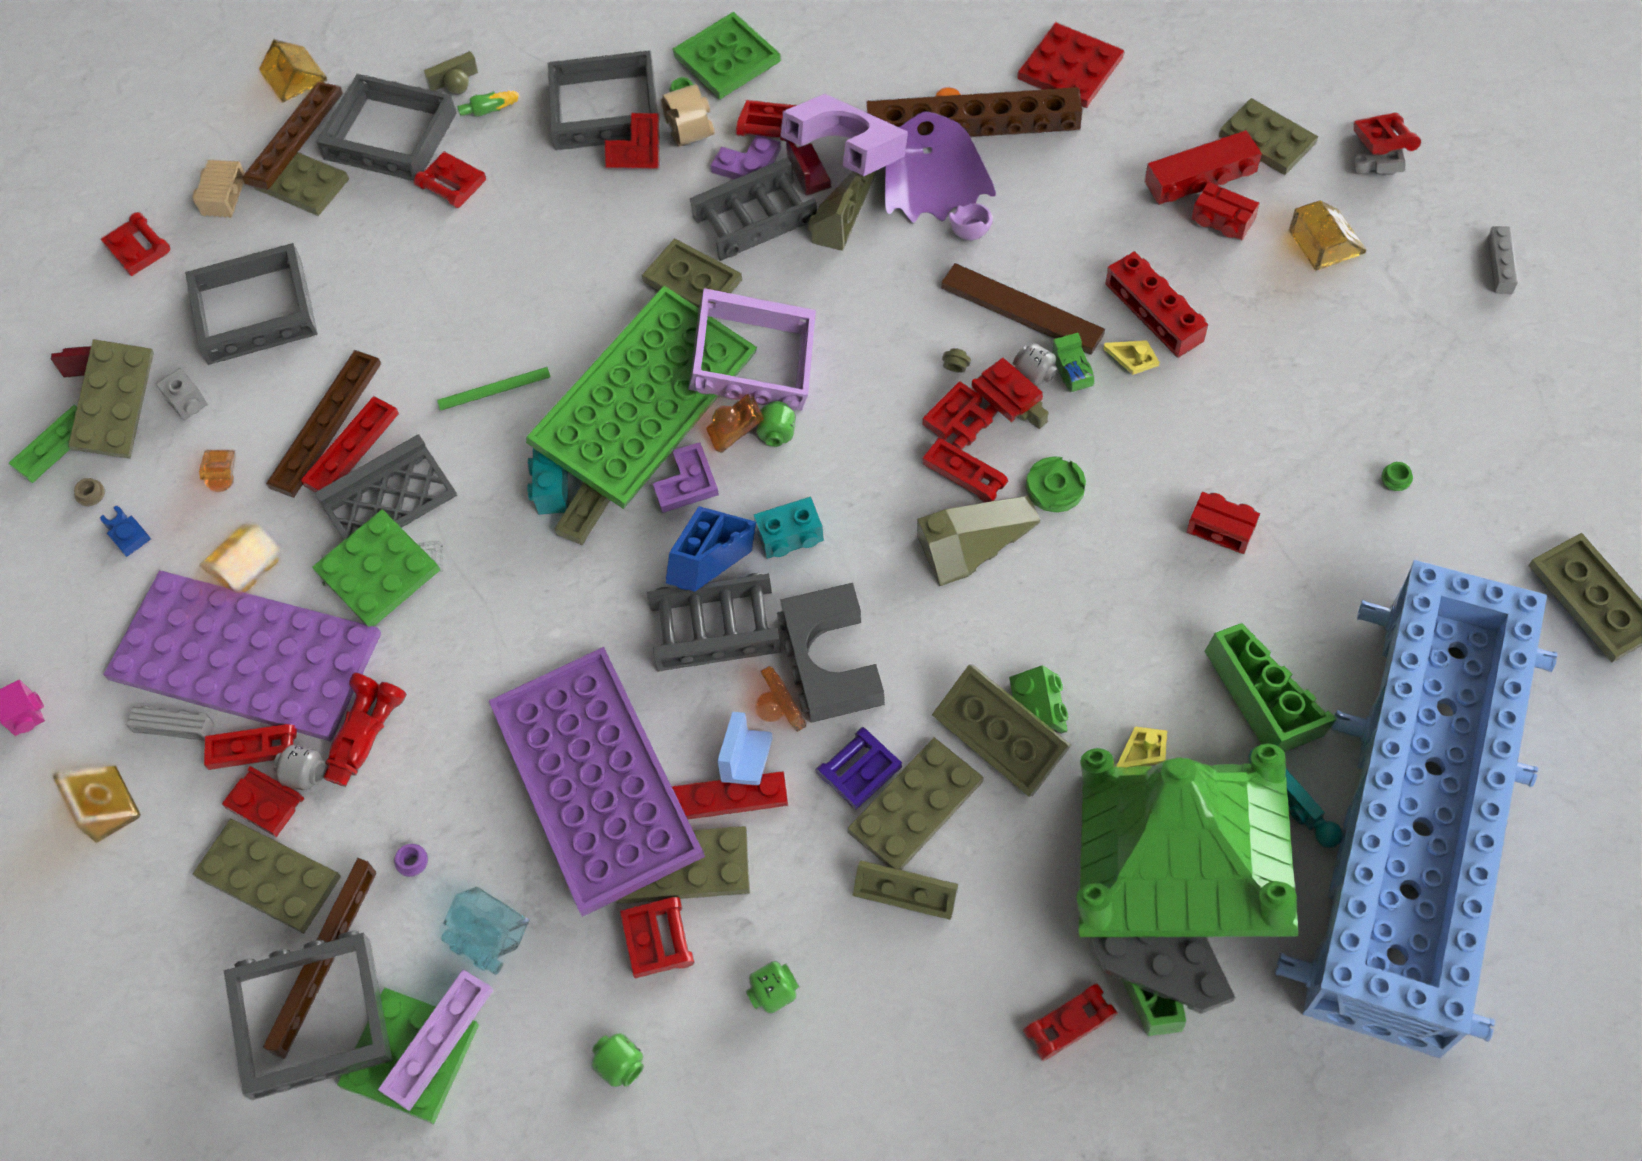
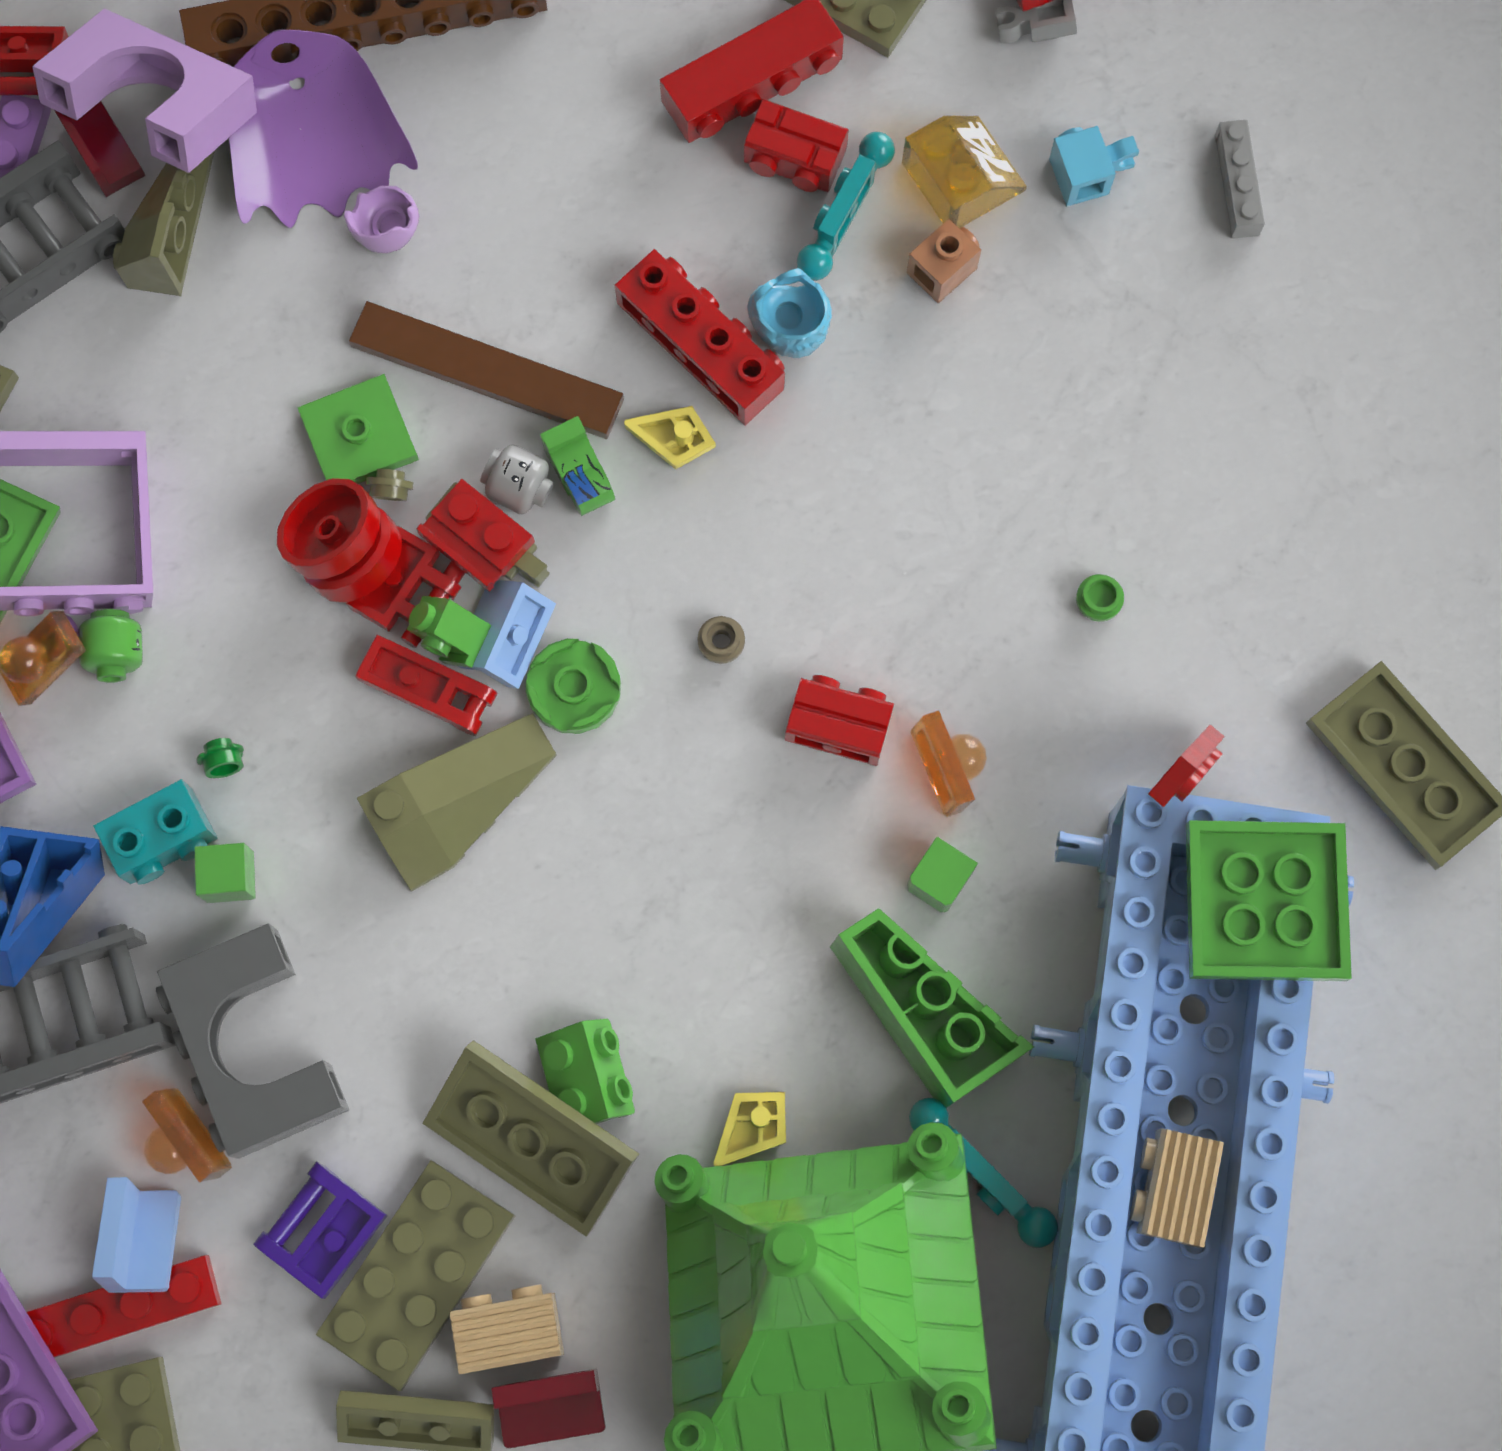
camera: 15 degrees left, 15 degrees up
(828, 555) = (225, 873): none -> bright green piece
(833, 494) = (221, 758): none -> green plate
(925, 379) = (339, 540): none -> red wheel
(938, 331) = (358, 431): none -> bright green plate
(971, 844) = (506, 1331): none -> tan brick
(984, 438) = (448, 630): none -> bright green brick
(993, 894) = (550, 1408): none -> dark red panel
(1018, 447) = (517, 624): none -> light blue panel
(1151, 462) = (714, 627): none -> dark tan plate
(1211, 299) = (790, 317): none -> medium azure hair
(1255, 241) = (852, 187): none -> teal plate
(1281, 618) = (941, 875): none -> bright green piece
(1291, 554) = (949, 761): none -> clear orange tile
(1311, 280) = (944, 260): none -> nougat brick
(1405, 240) = (1086, 165): none -> medium azure brick
(1430, 803) = (1177, 1187): none -> tan brick
(1453, 556) = (1189, 768): none -> red plate
(1504, 631) = (1268, 901): none -> bright green plate

